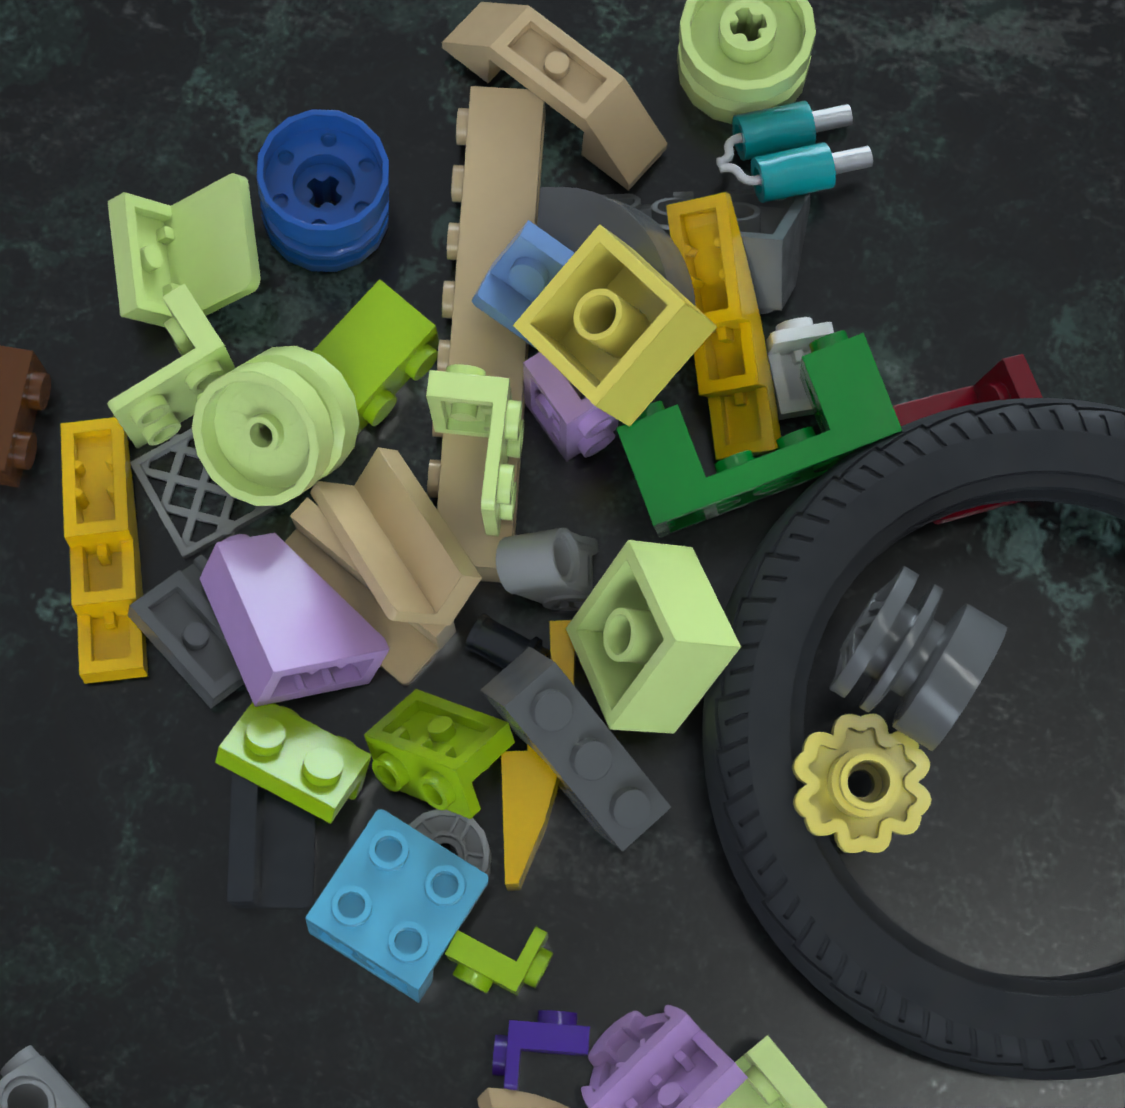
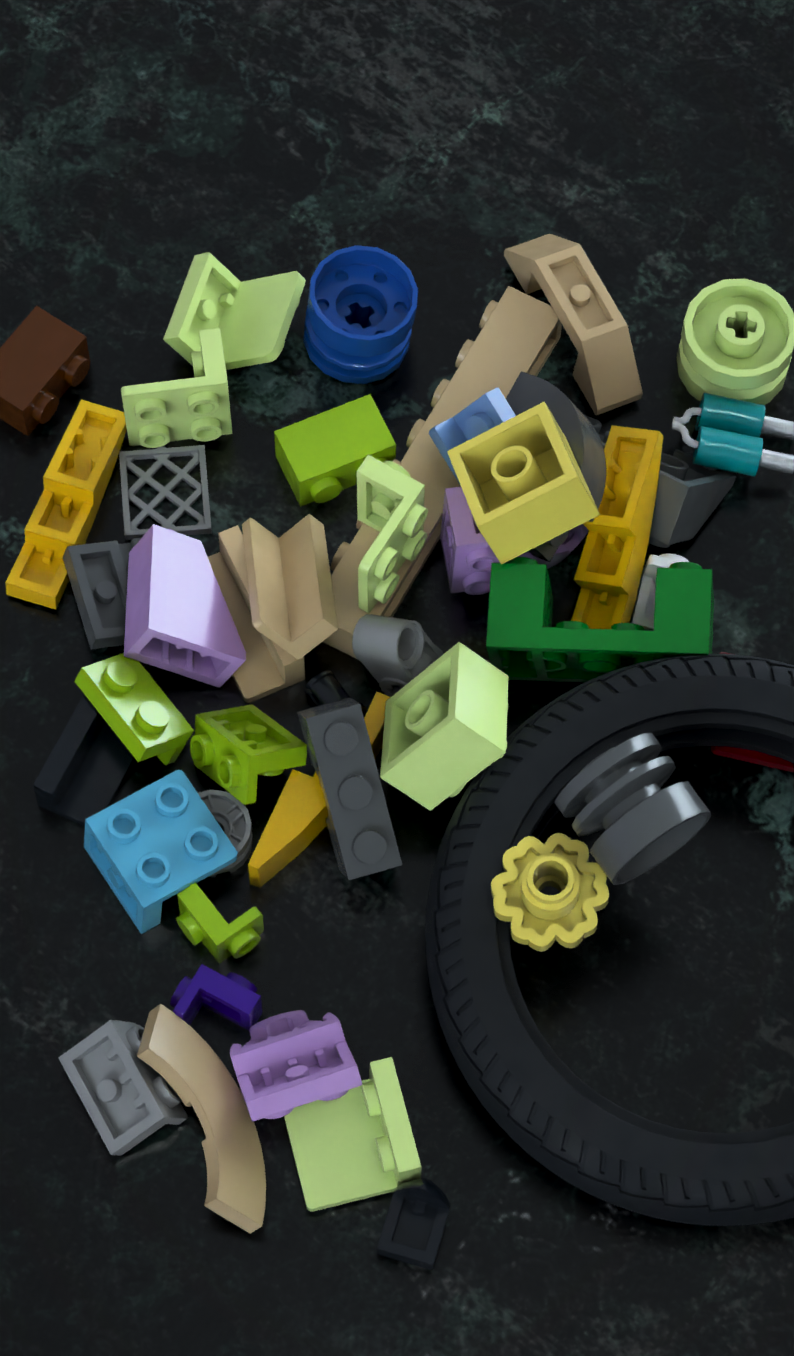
camera: 20 degrees right, 10 degrees down
(275, 425) = (239, 462): yellowish green wheel -> none

